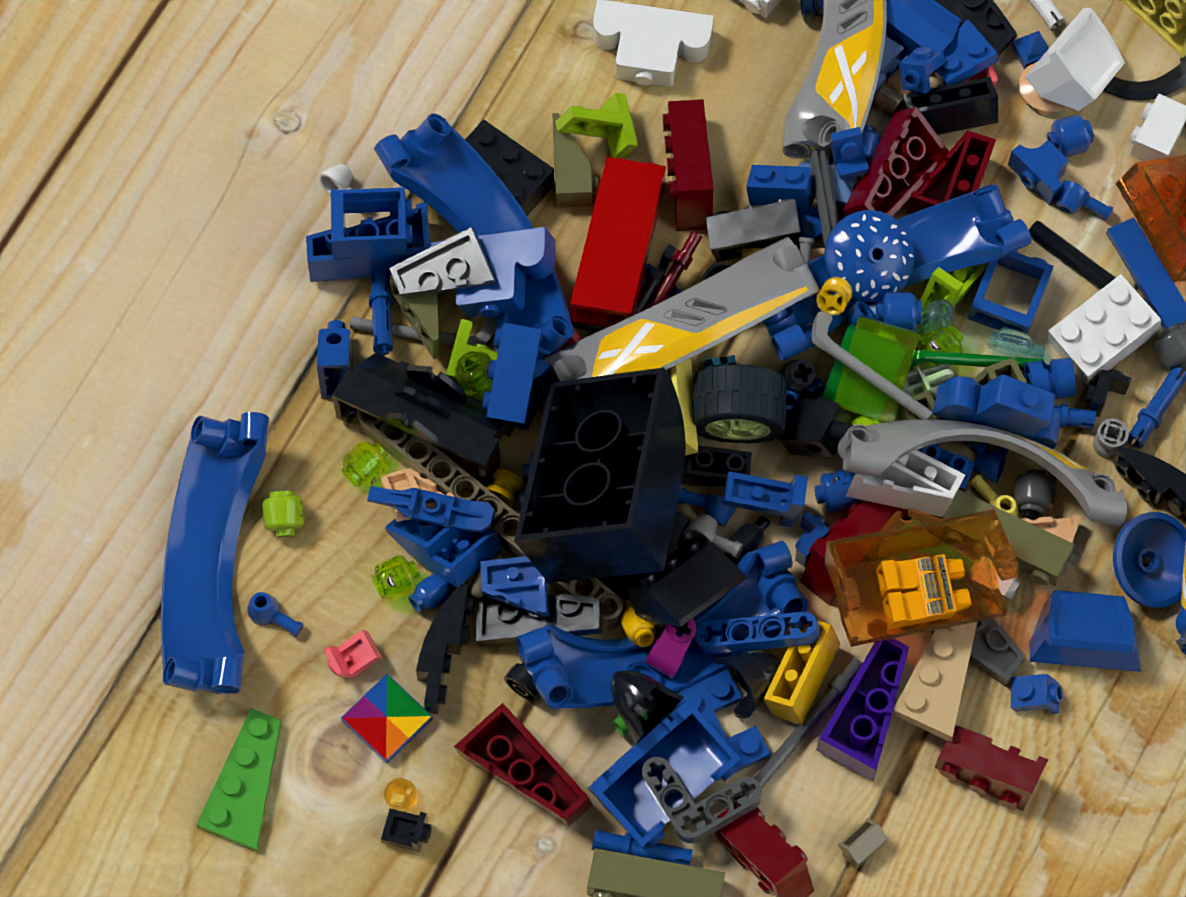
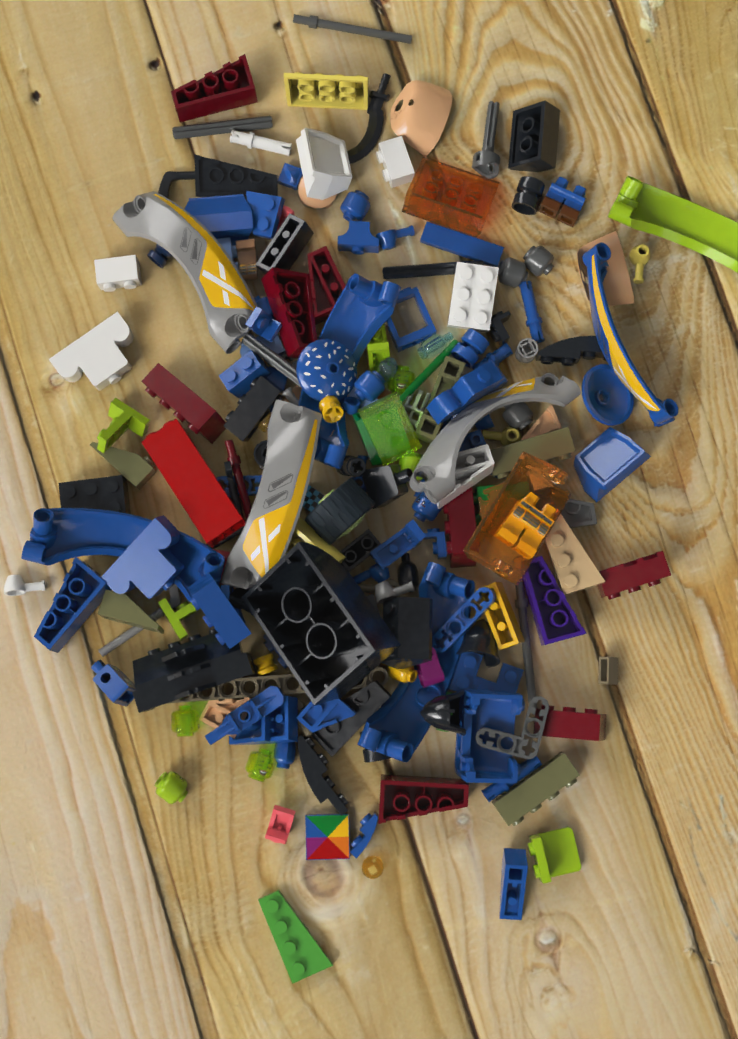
camera: 45 degrees left, 15 degrees up
(204, 528) = (144, 839): blue panel -> none
(271, 613) = (218, 841): blue bar -> none
(365, 202) = (34, 602): blue window -> none
(381, 304) = (106, 630): blue pin -> none
(406, 830) = (394, 883): black bracket -> none
(439, 749) = (367, 828): none -> blue slope
(444, 267) = (124, 585): wing -> none
(473, 373) = (194, 625): clear neon green head -> none
(824, 342) = (353, 441): light grey piece -> none
(917, 68) = (250, 242): blue bracket -> none
(1035, 693) = (614, 516): blue bracket -> none

